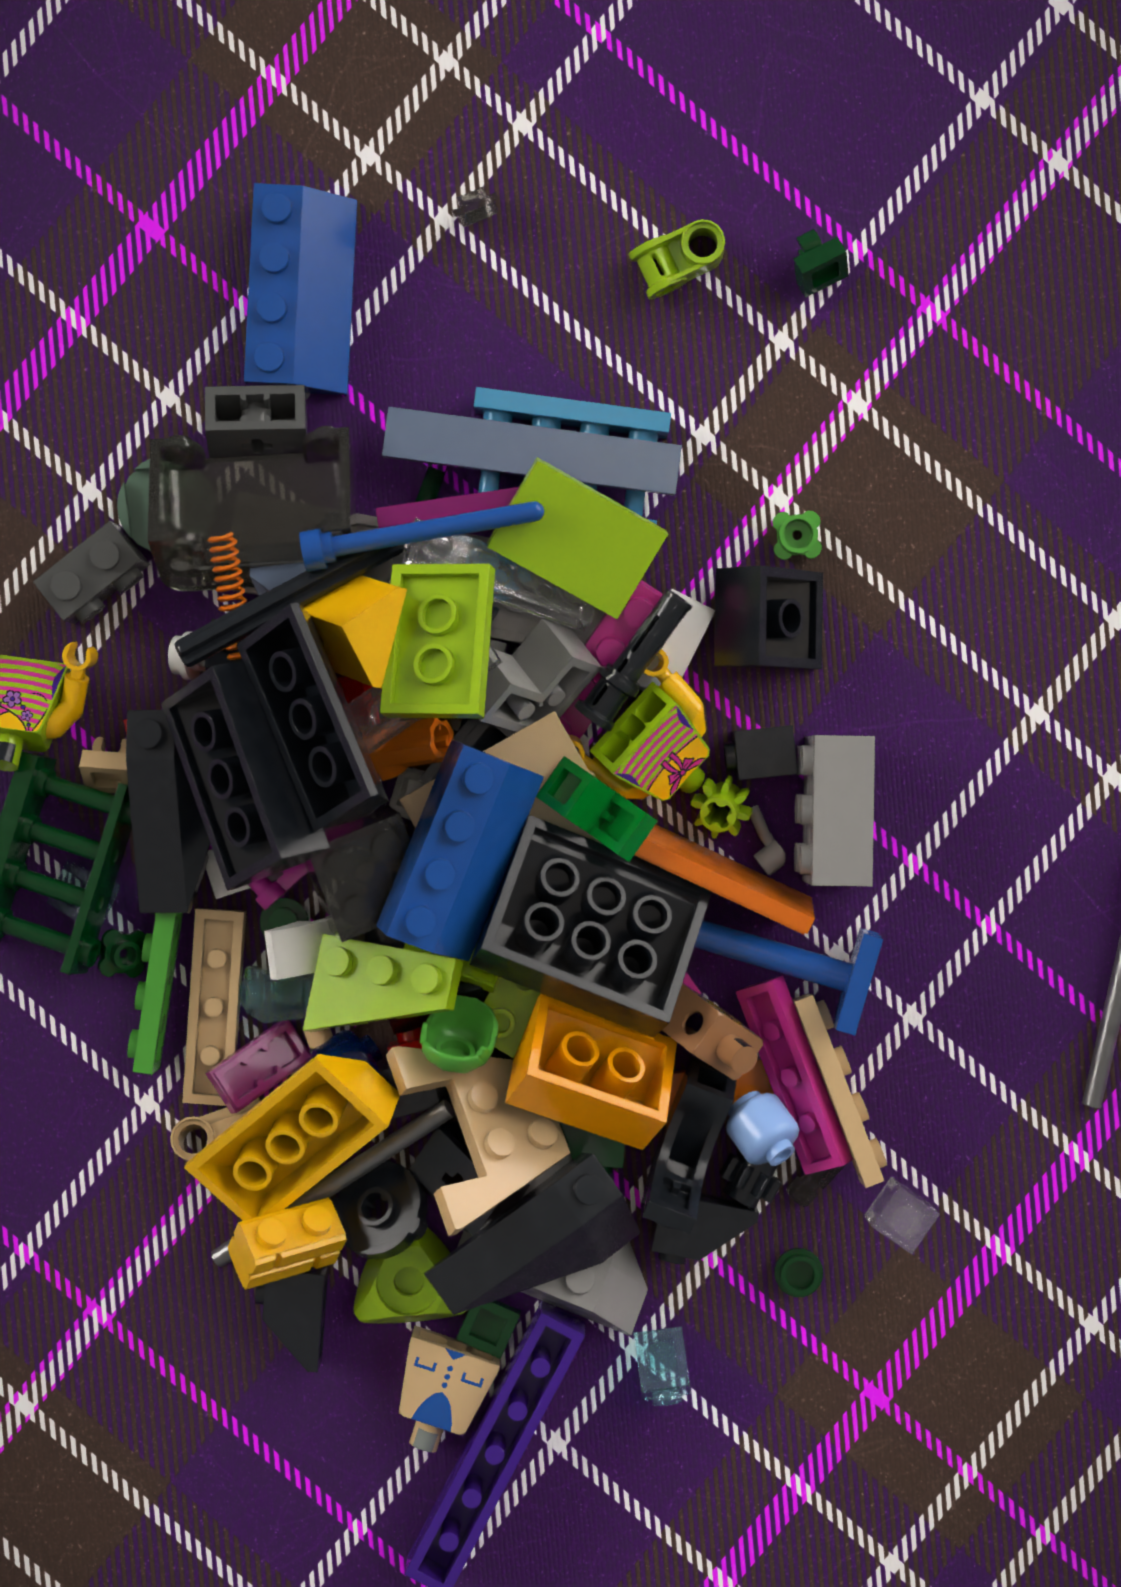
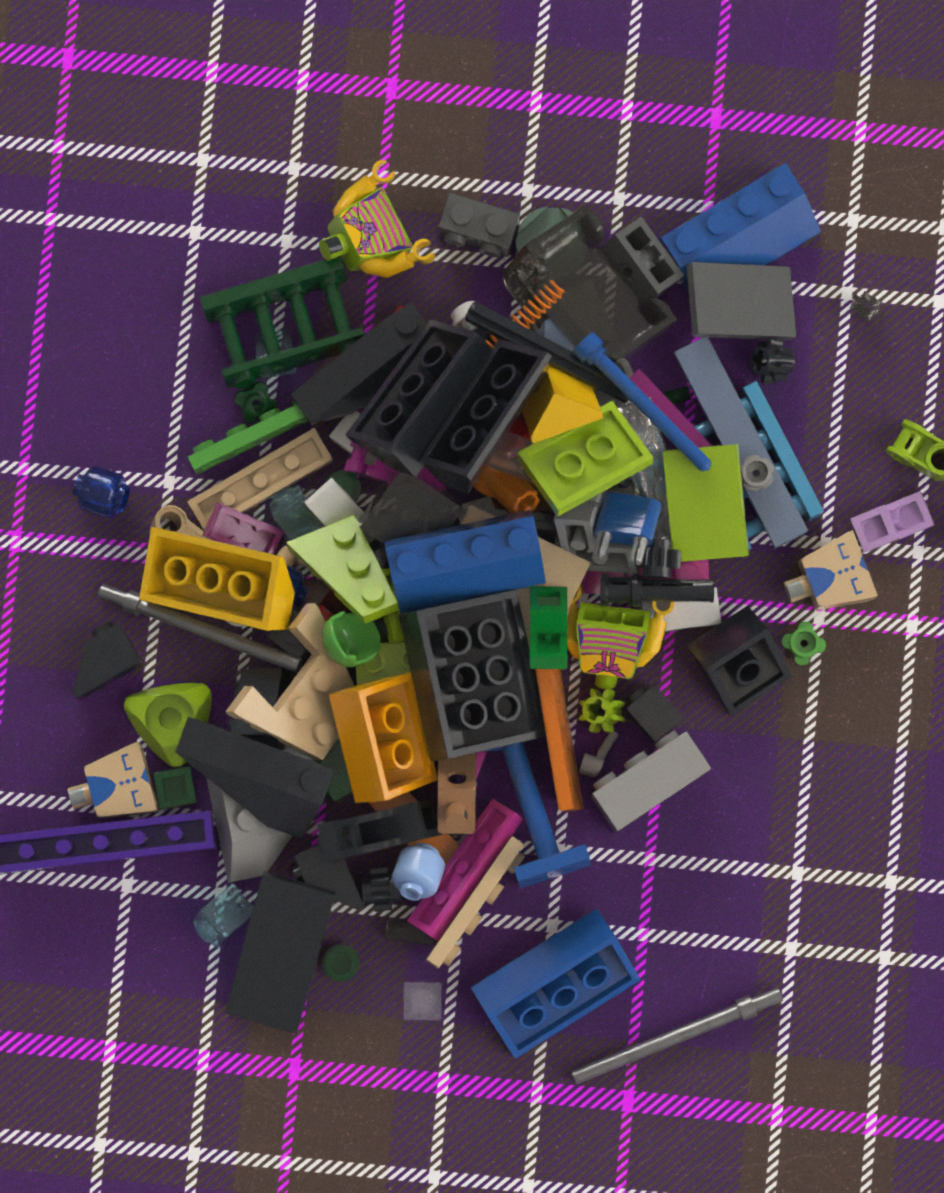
camera: 55 degrees right, 5 degrees down
(103, 768) = (363, 313): tan tile -> none
(108, 1189) = (101, 492): none -> clear blue head
(286, 1243) = (146, 622): yellow brick -> none
(375, 342) = (741, 301): none -> dark grey tile
(404, 1218) = (198, 685): black plate -> none
(465, 353) = (772, 361): none -> black gear
(538, 641) = (626, 521): none -> blue piece
(581, 445) = (765, 469): none -> light grey plate
(602, 634) = (660, 559): none -> black gear
(731, 345) = (892, 521): none -> lavender slope
(744, 1333) = (280, 952): none -> black tile
(746, 451) = (833, 576): none -> tan torso
(979, 1059) = (555, 983): none -> blue slope

